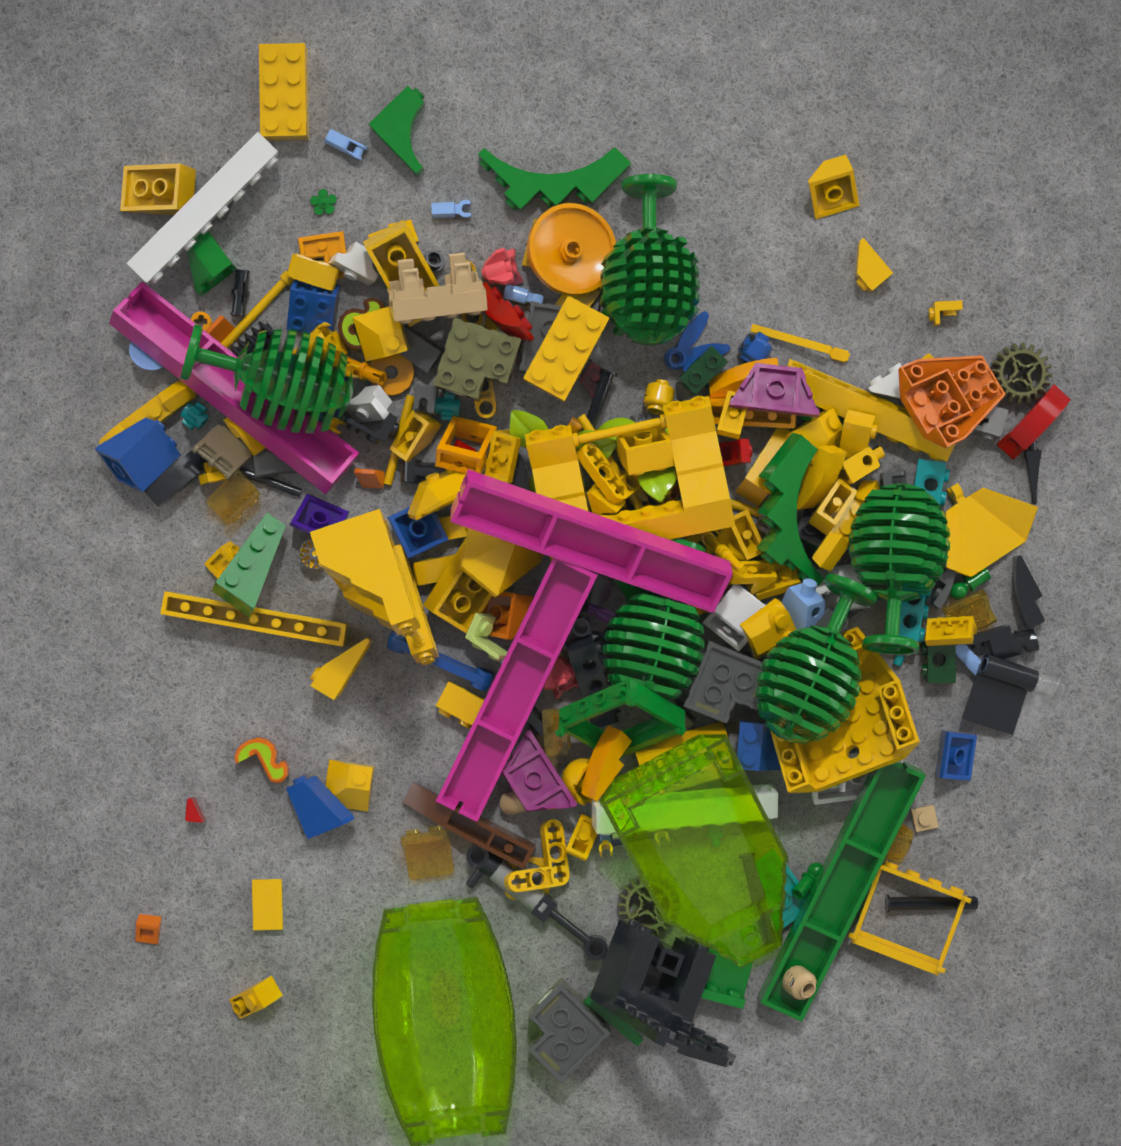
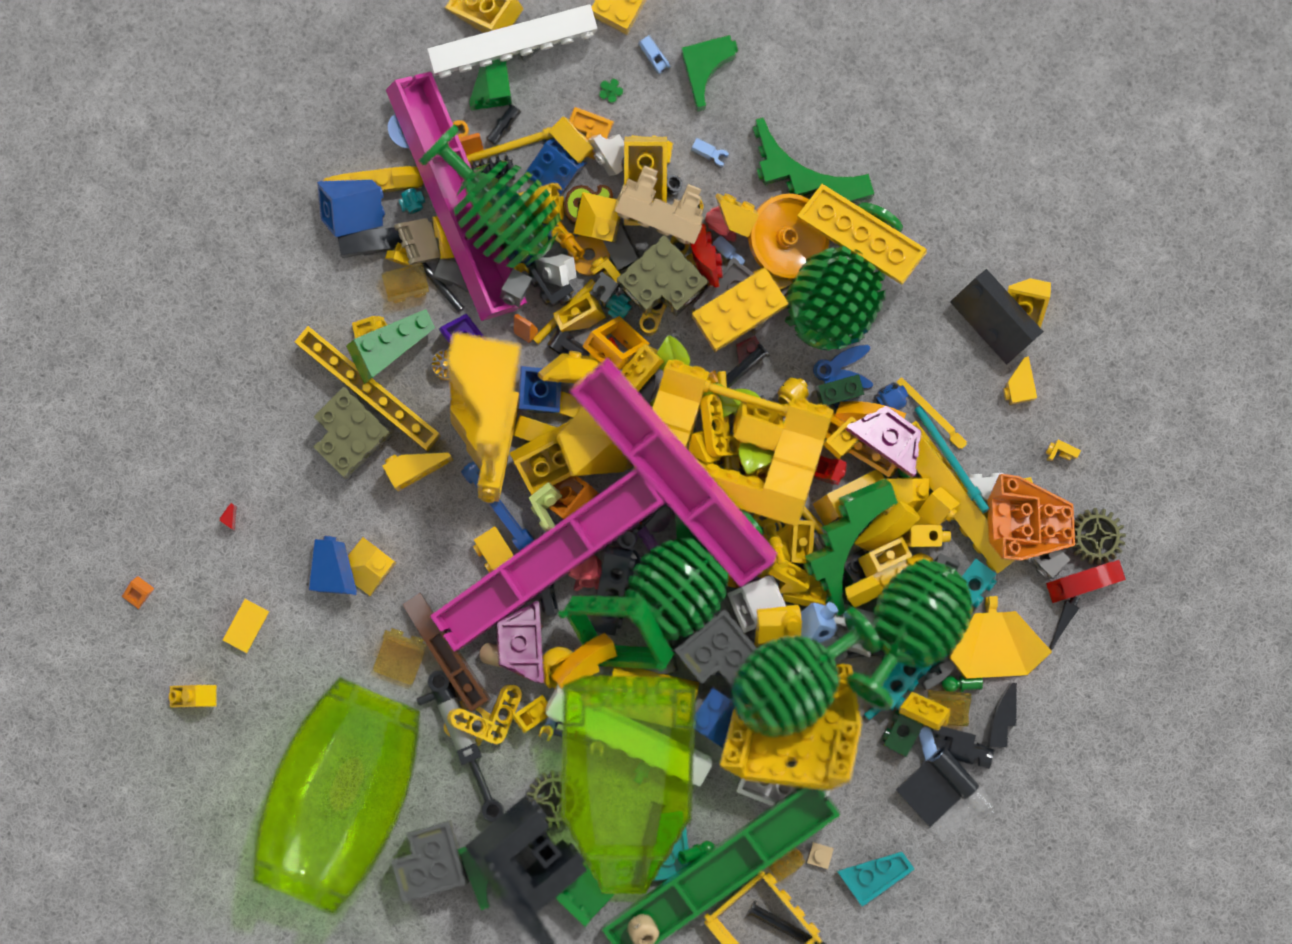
camera: 30 degrees right, 5 degrees down
(264, 670) = (351, 434): none -> olive piece
(267, 754) = (315, 505): animal -> none
(341, 446) = (515, 288): none -> dark grey brick
(421, 378) = (610, 269): none -> yellow bracket
(512, 258) = (736, 215): none -> yellow slope
(552, 743) = (552, 622): clear yellow bracket -> none
(639, 207) = (857, 229): none -> yellow plate
(812, 216) = (996, 316): none -> black brick
(883, 398) = (973, 491): none -> teal bar
(955, 755) = (874, 818): blue slope -> none
(987, 808) = (875, 876): none -> teal wing

